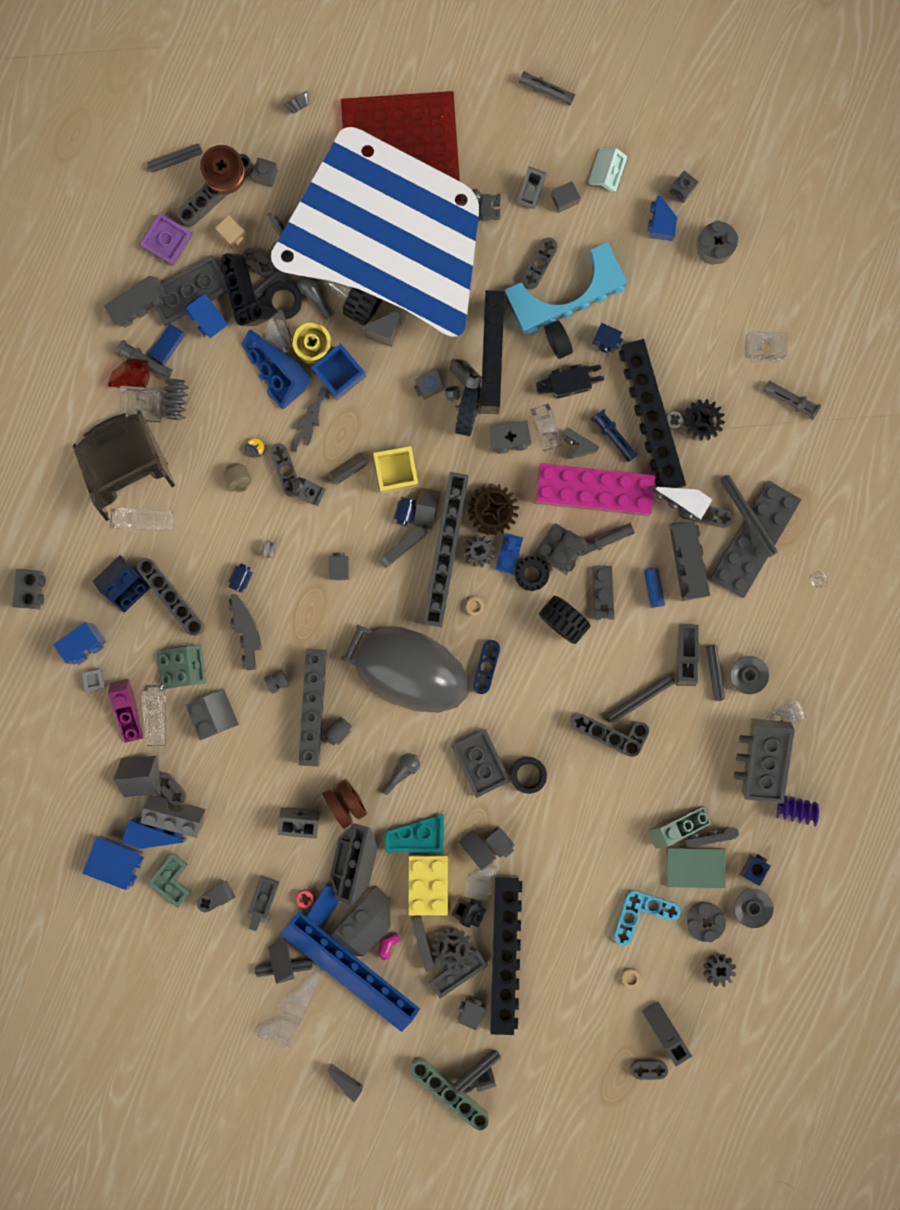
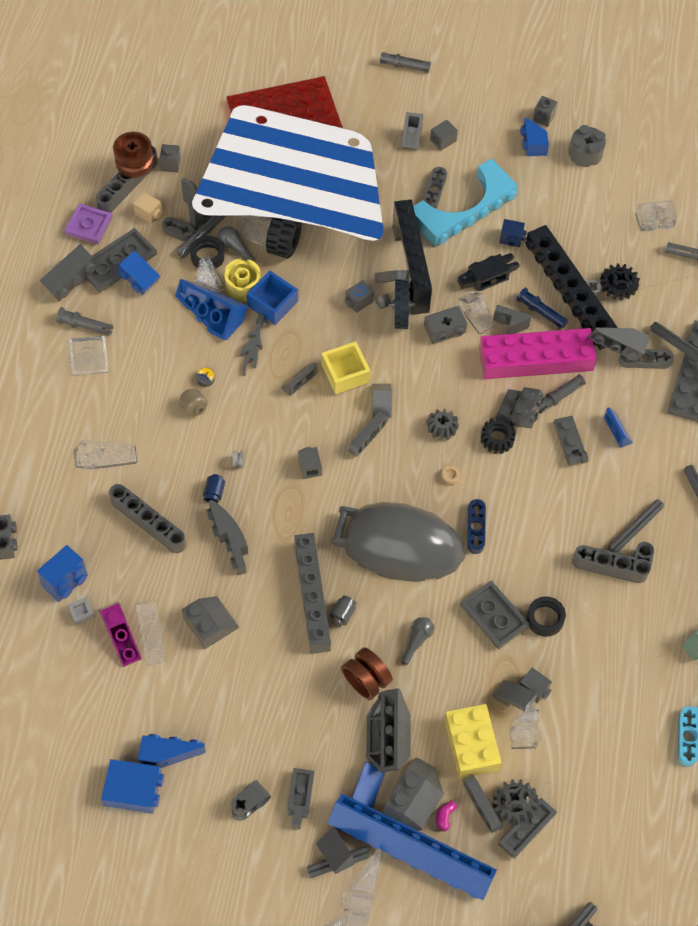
camera: 15 degrees left, 25 degrees down
(117, 456) = (77, 402): clear smoke windscreen -> none
(121, 583) = (96, 515): dark blue slope -> none
(130, 373) = (73, 329): clear red slope -> none
(138, 776) = (144, 694): dark grey slope -> none
(165, 880) = (192, 794): sand green plate -> none
(167, 344) = (105, 305): blue slope -> none
(174, 399) = (120, 346): dark grey piece -> none
(174, 786) = (183, 698): dark grey beam -> none
(175, 158) = (85, 162): dark grey axle -> none
(181, 667) = (169, 580): sand green bracket -> none
(184, 822) = (201, 725): dark grey arch -> none
(241, 293) = (175, 263): black beam -> none
(276, 681) = (270, 576): dark grey wheel -> none
(278, 467) = (239, 398): dark grey beam -> none
(298, 102) = (189, 103): dark grey piece -> none
(298, 823) = (322, 704): dark grey brick -> none
(301, 903) = (349, 779): coral bush -> none
(308, 491) = (265, 401): dark grey brick -> none
(384, 329) = (305, 256): dark grey slope -> none
(405, 511) = (362, 403): dark blue brick -> none
(419, 837) = (455, 695): teal wing -> none
(445, 549) = (410, 428): dark grey brick -> none
(469, 912) = (522, 759): black brick -> none
(471, 1012) = (552, 866): dark grey brick -> none
(484, 513) = (447, 380): dark brown gear -> none
(486, 204) = (380, 153): dark grey animal -> none
(498, 1024) = (584, 872): black brick -> none
(509, 553) = (471, 424): blue hinge -> none
(558, 339) = (469, 238): black tyre -> none
(564, 619) = (542, 462): black tyre -> none
(608, 168) = (475, 109): light aqua panel -> none
(687, 655) = (668, 480): dark grey slope -> none
(689, 561) = (645, 398): dark grey wedge -> none

